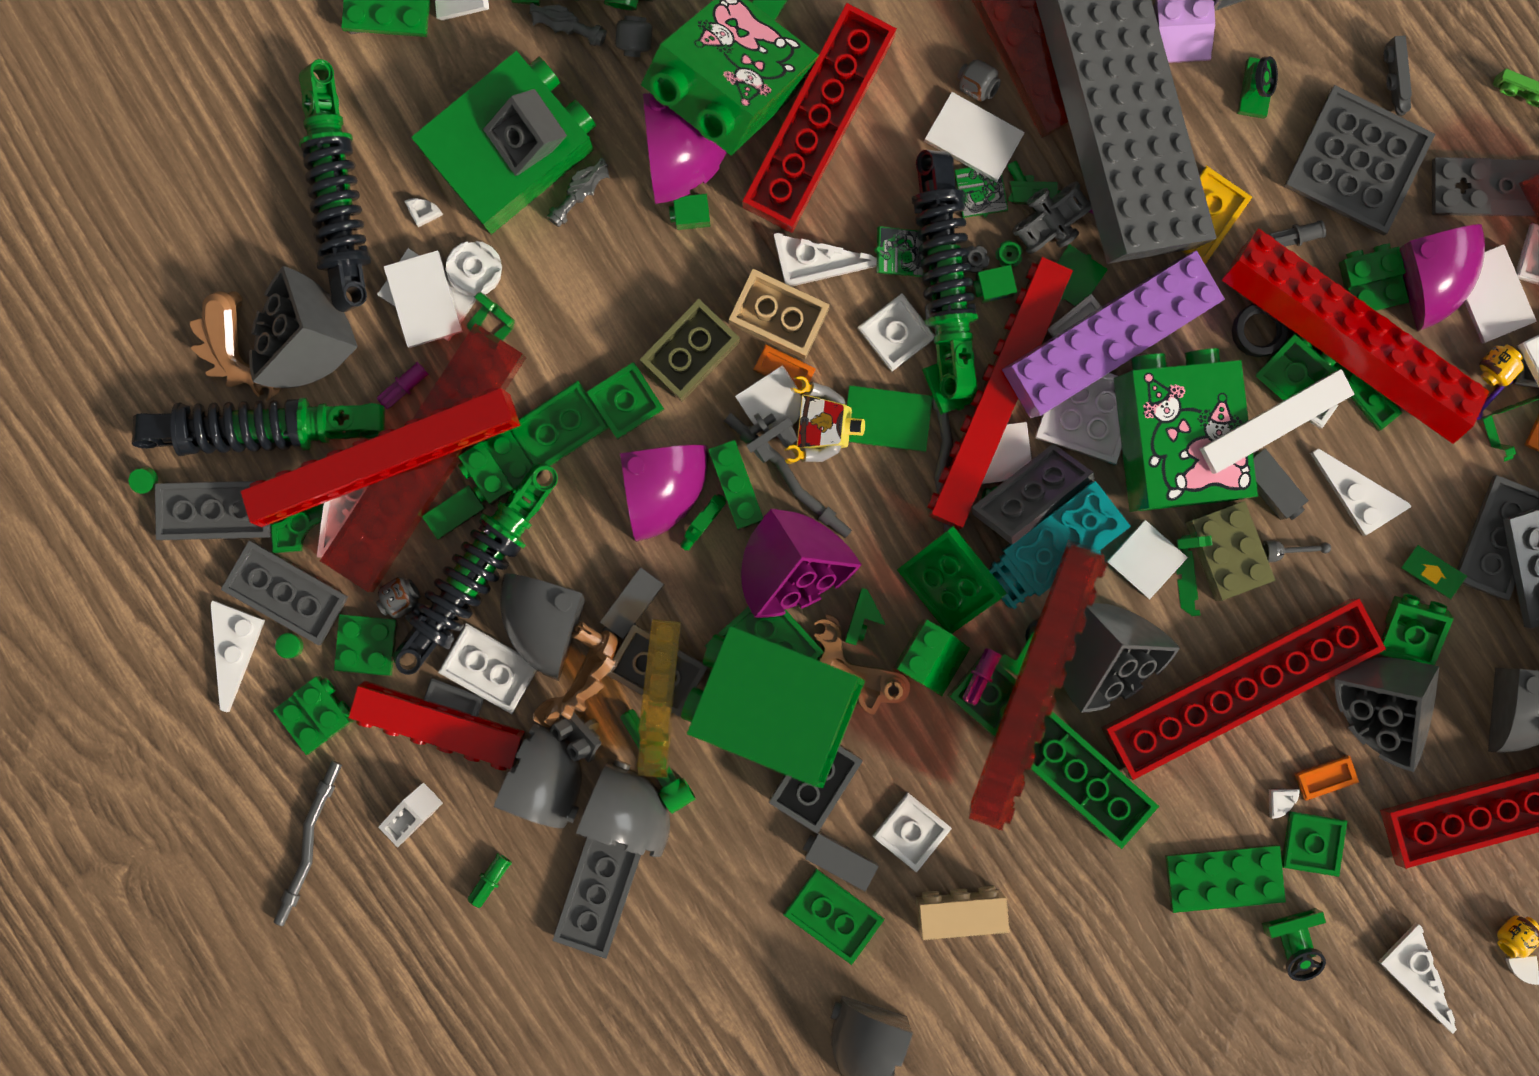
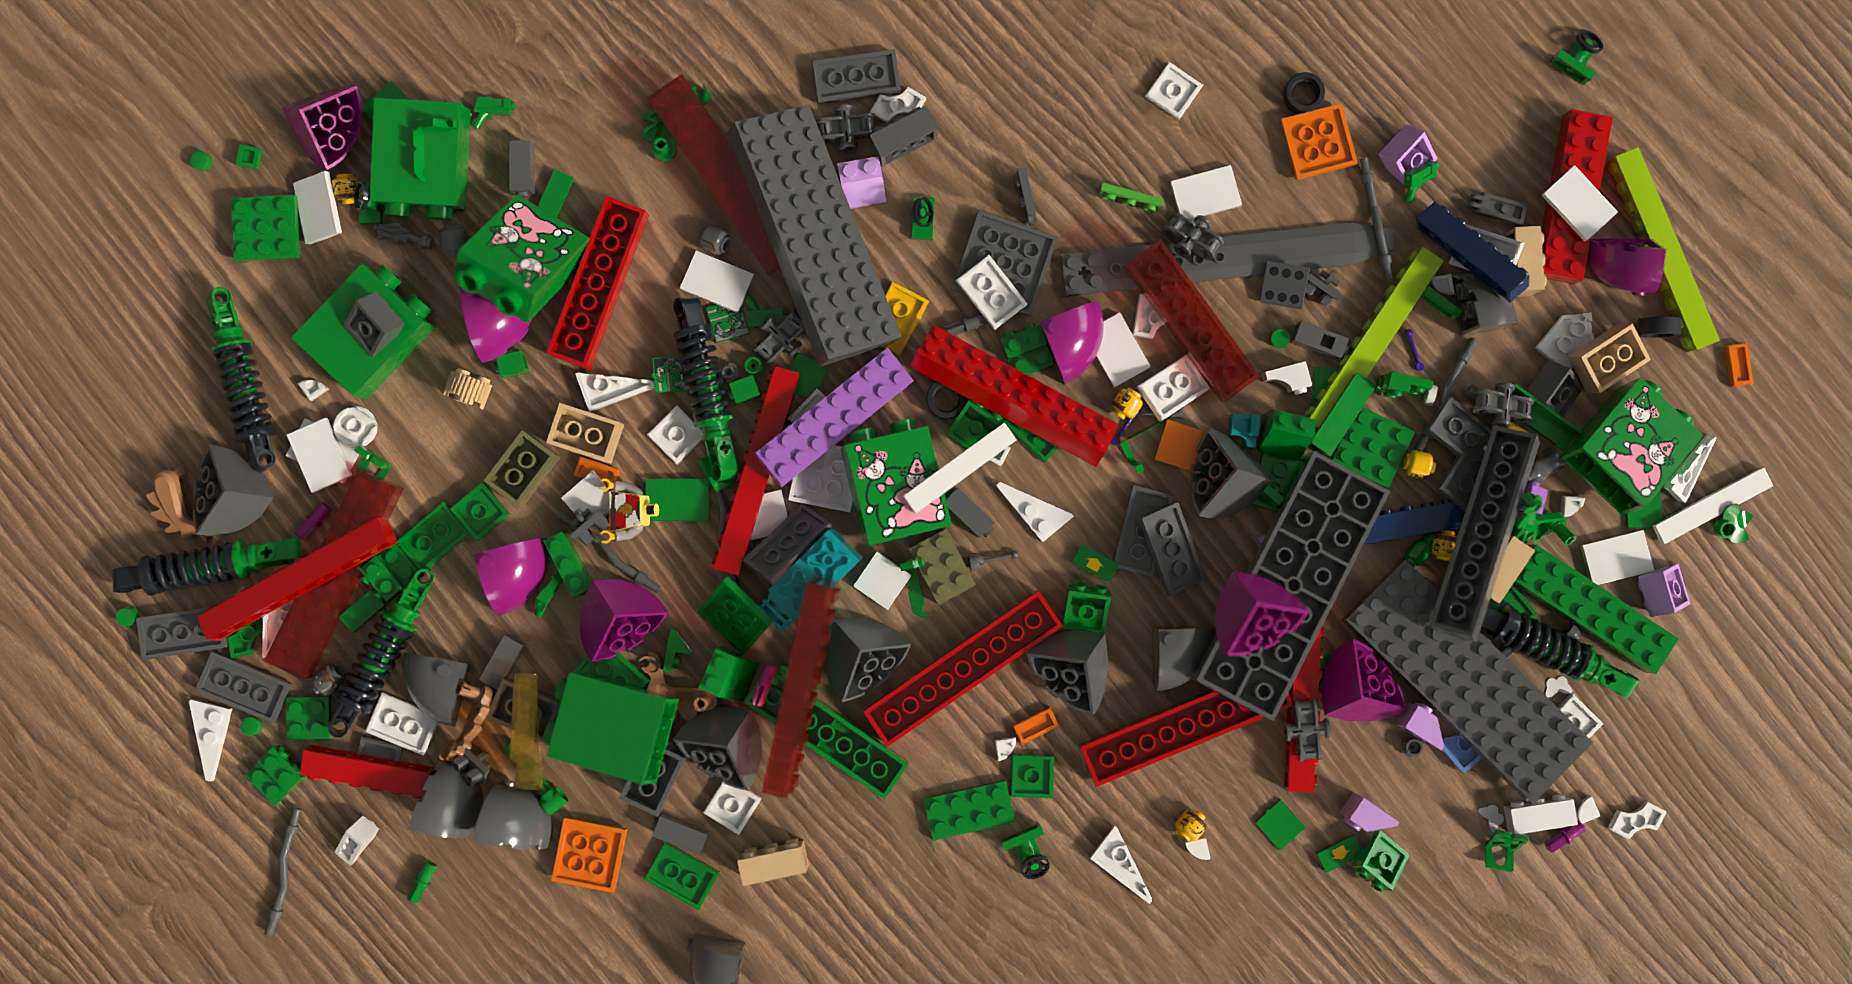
camera: 10 degrees left, 0 degrees up
(581, 185) = (429, 354): dark grey piece -> none
(596, 897) = (503, 886): dark grey plate -> none
(631, 235) = (467, 388): none -> tan brick
(715, 873) = (589, 854): none -> orange plate
(914, 749) = (724, 744): none -> dark grey brick
(1339, 195) = (991, 292): none -> white tile

